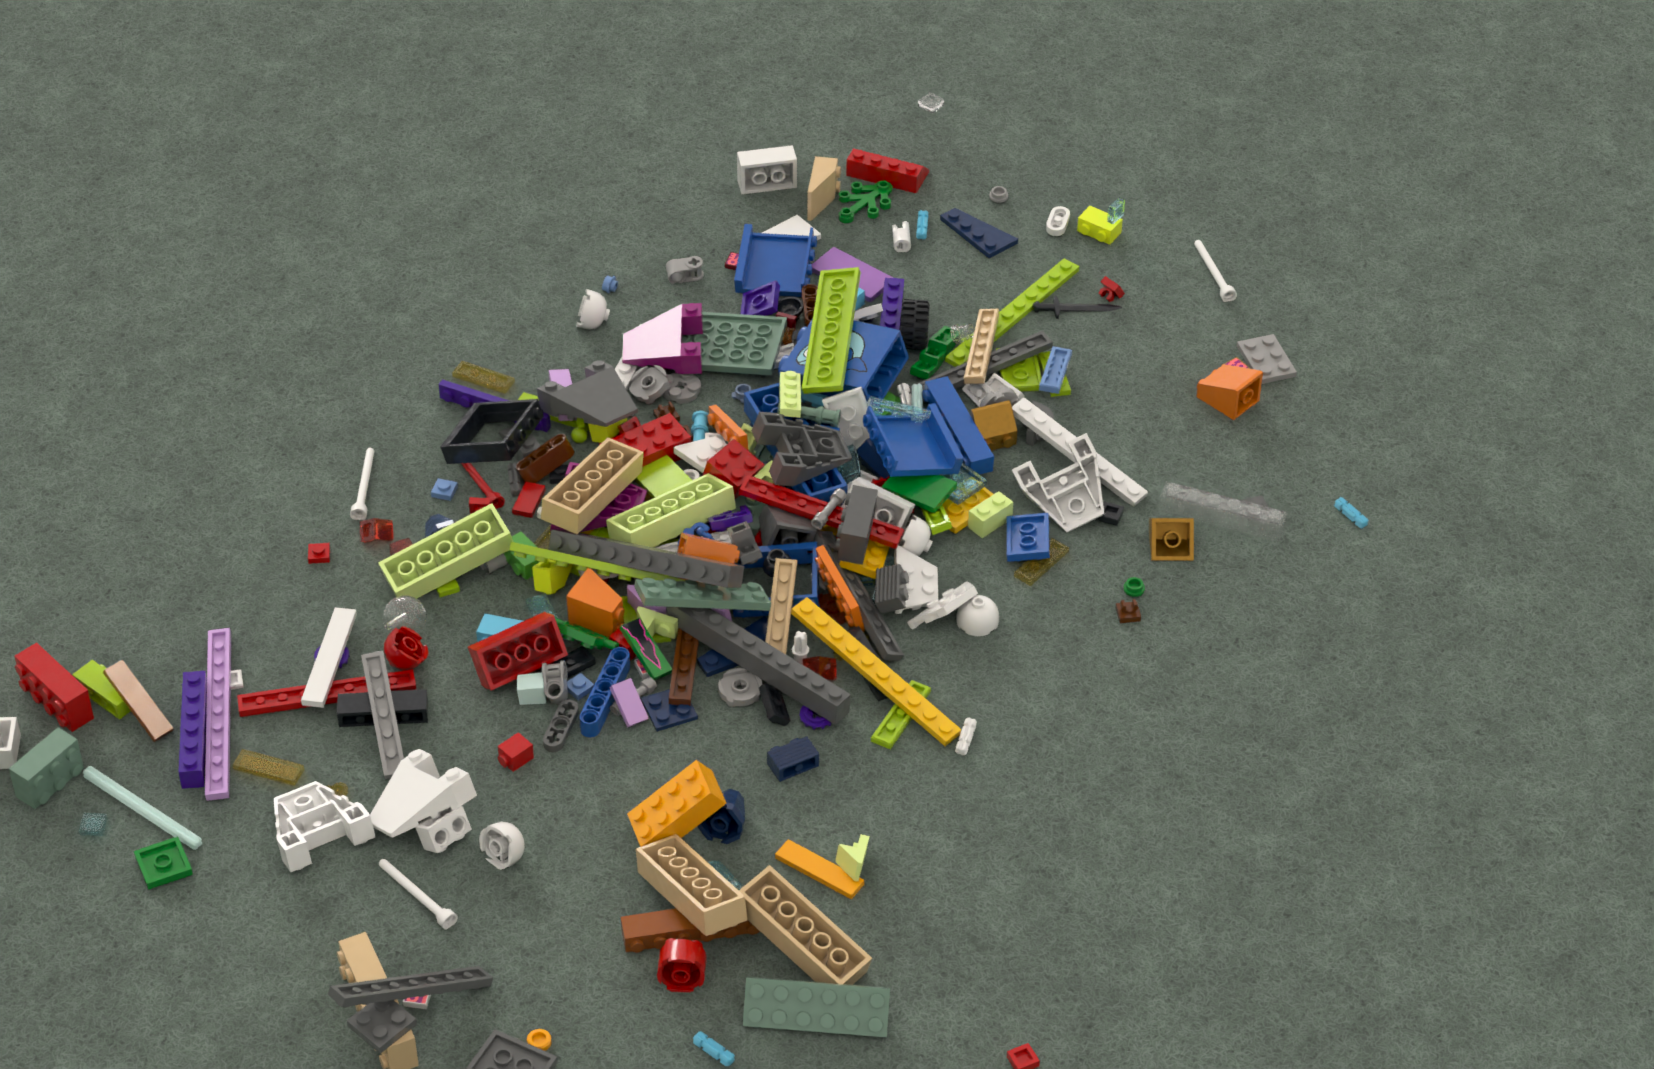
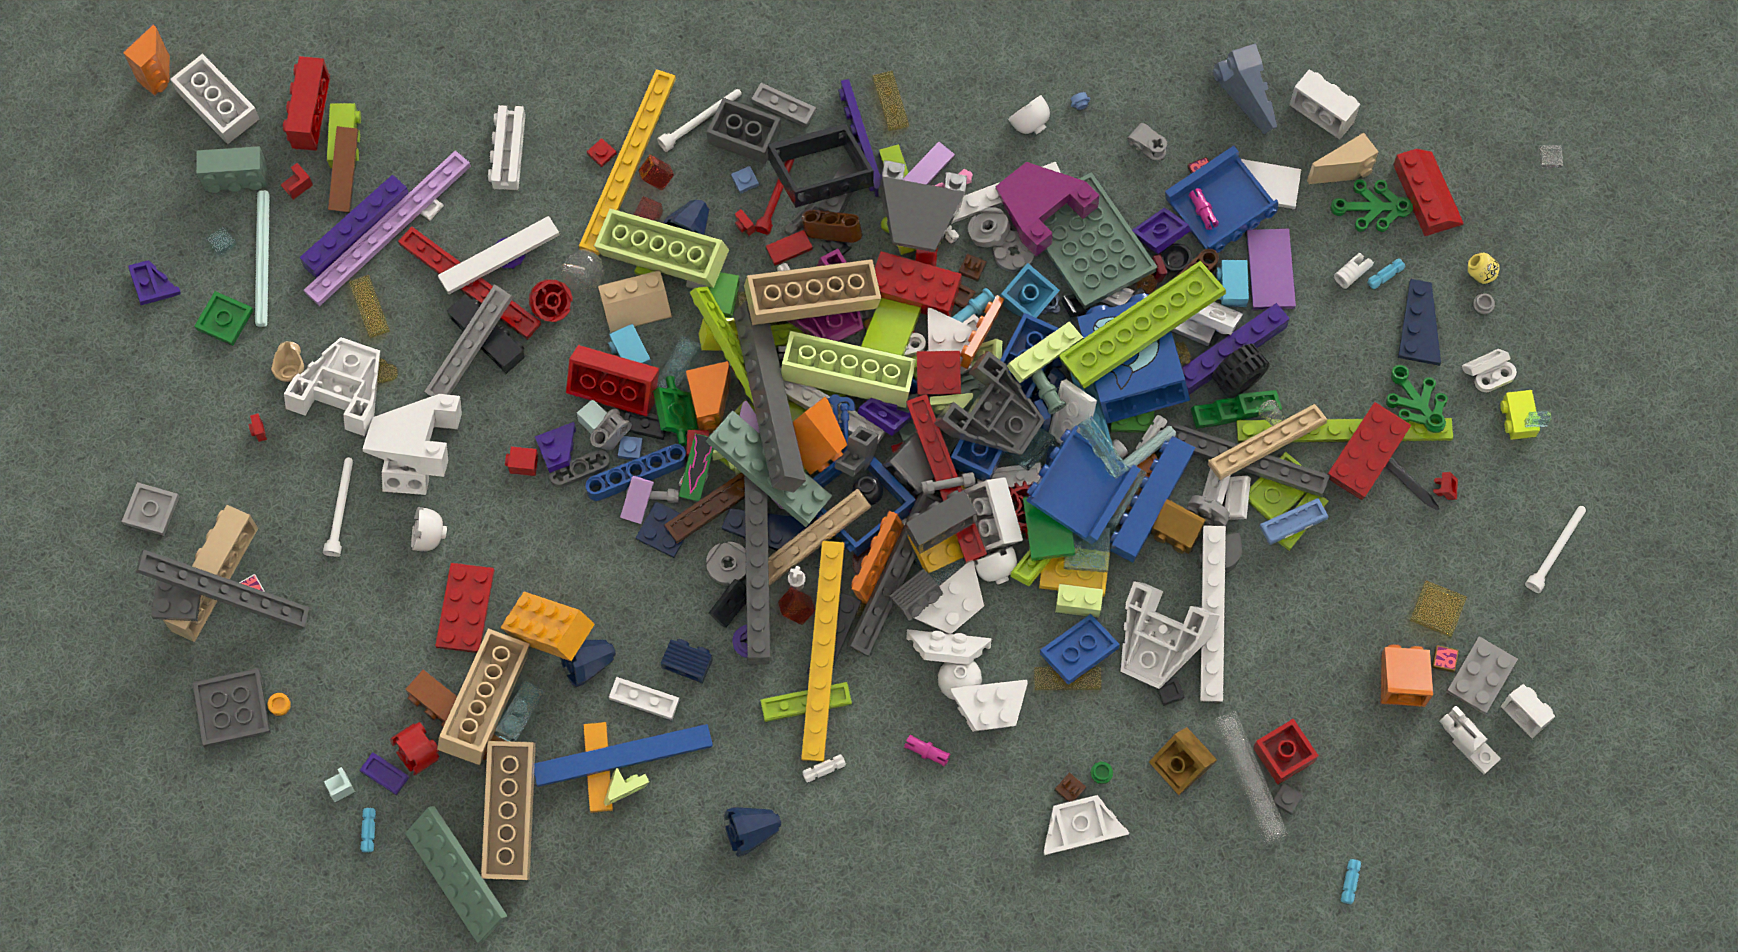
camera: 50 degrees right, 25 degrees up
(71, 891) = (150, 283): none -> dark purple wing
(107, 741) = (297, 183): none -> red panel
(246, 600) = (507, 148): none -> white brick
(255, 843) = (287, 362): none -> tan hair
(269, 1016) = (150, 509): none -> light grey plate
(286, 898) = (256, 427): none -> red plate
(345, 540) = (629, 156): none -> yellow plate
(408, 459) = (743, 130): none -> dark grey brick
(413, 431) = (783, 105): none -> light grey plate
(464, 605) = (635, 301): none -> tan slope
(528, 724) = (557, 446): none -> dark purple wing
(594, 868) = (465, 607): none -> red plate
(656, 1039) = (339, 786): none -> light aqua panel
(676, 1008) = (384, 773): none -> dark purple tile
(718, 190) = (1243, 82): none -> sand blue wedge
(725, 391) = (1028, 293): none -> dark azure slope
(761, 380) = (1073, 306): none -> black plate
(769, 272) = (1203, 209): none -> dark pink pin
(794, 804) = (644, 698): none -> white plate
(832, 835) = (622, 755): none -> blue tile
(969, 803) = (750, 828): none -> dark blue cone
(974, 176) = (1483, 268): none -> light yellow head
(1015, 668) = (927, 750): none -> dark pink pin
(1019, 608) = (990, 704): none -> white wing
(1033, 262) = (1418, 402): none -> green plant
(1043, 217) = (1486, 362): none -> white tile
(1045, 302) = (1368, 451): none -> red brick
(1163, 621) = (1081, 824): none -> white wing
(1195, 349) = (1438, 608): none -> clear yellow tile
(1223, 476) = (1285, 751): none -> red brick
(1308, 389) = (1469, 740): none -> white plate
(1318, 350) = (1528, 710): none -> white slope

